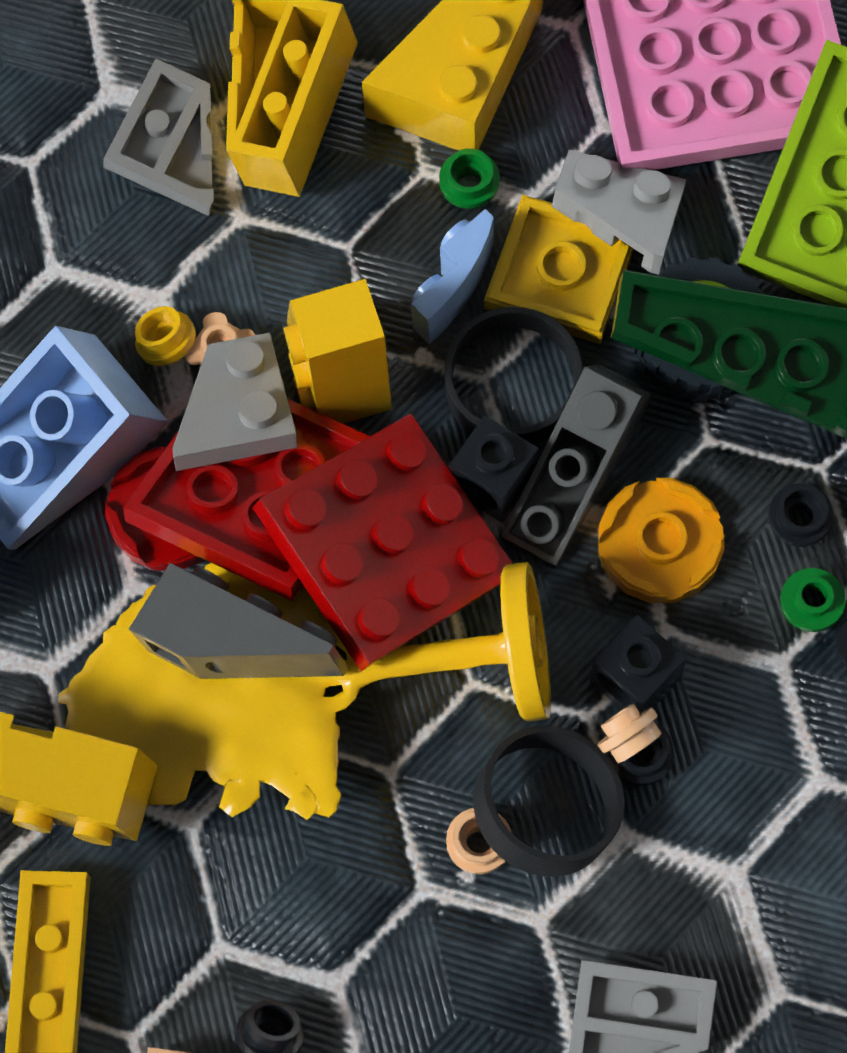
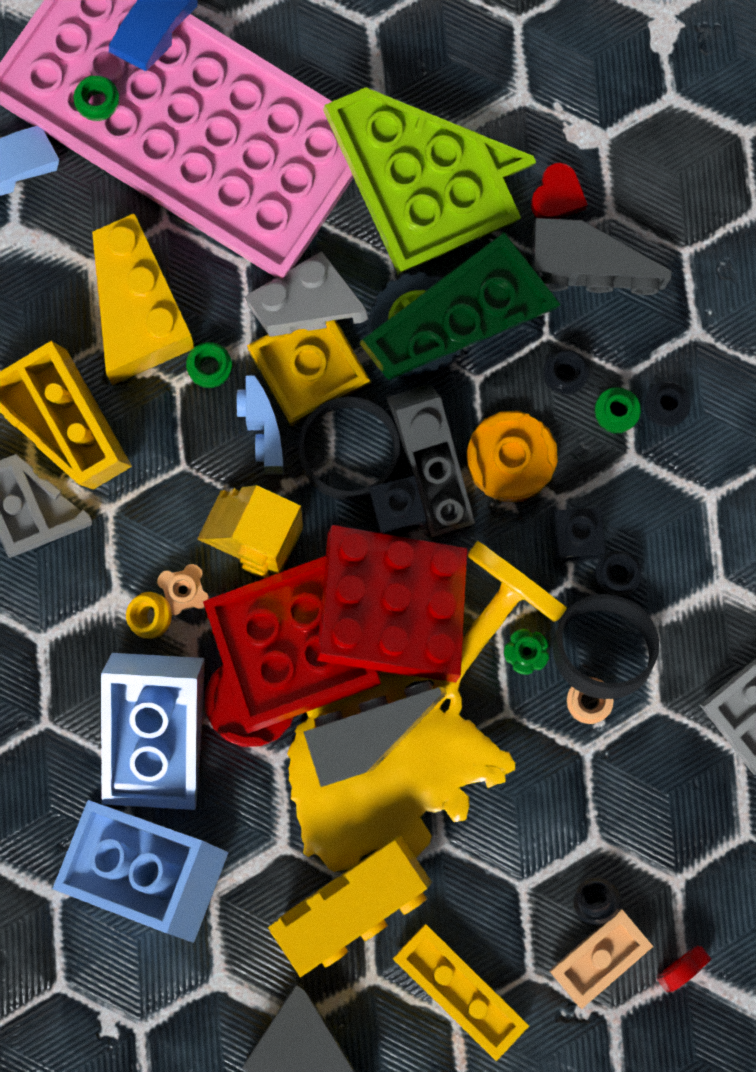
camera: 60 degrees left, 10 degrees up
(235, 406) = (237, 613): light grey wing -> none
(470, 747) = (514, 651): none -> green plate
(629, 732) = (612, 573): light nougat plate -> none

